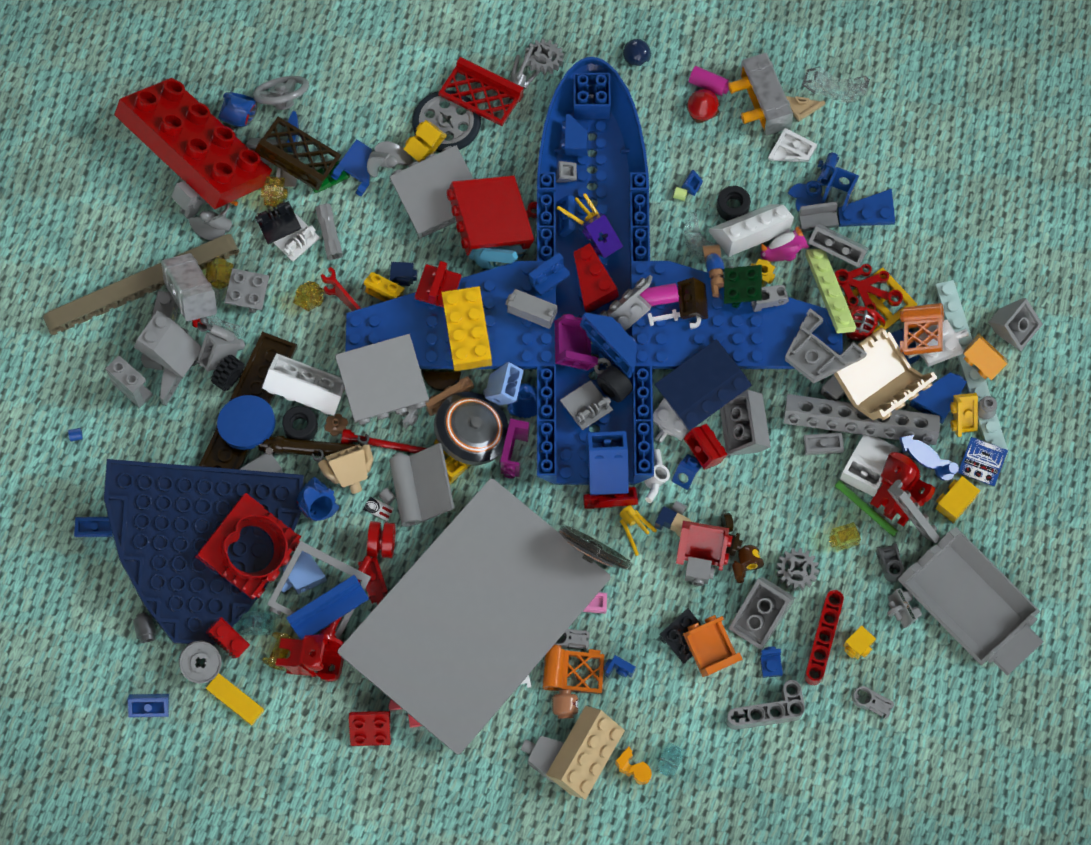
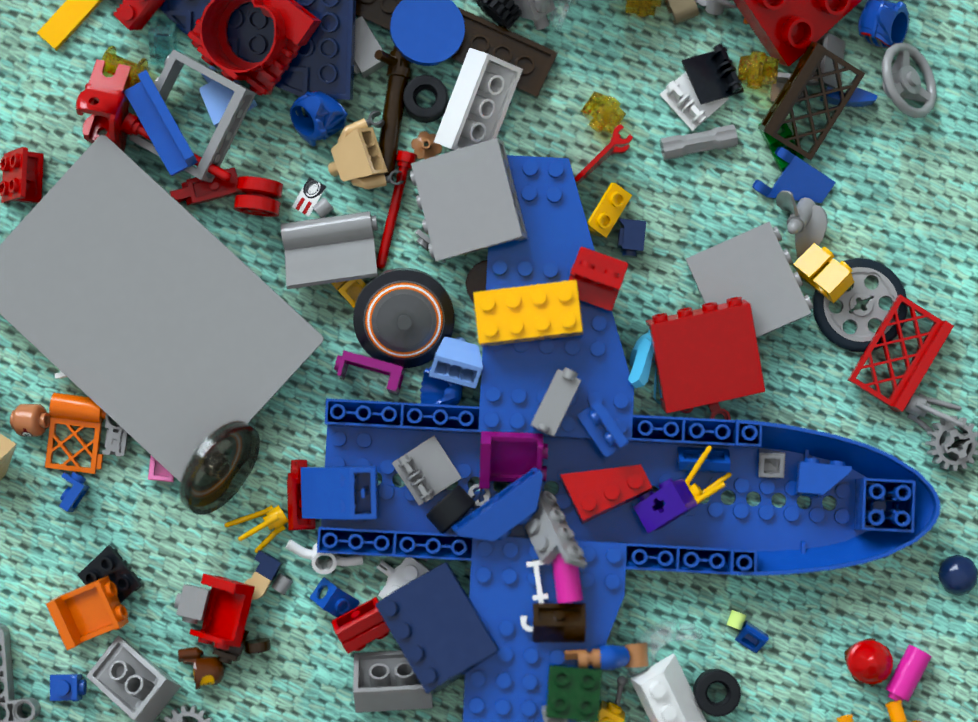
camera: 95 degrees right, 15 degrees up
(247, 289) = (616, 32): light grey hinge -> none
(435, 401) = (457, 293): medium nougat hinge -> none

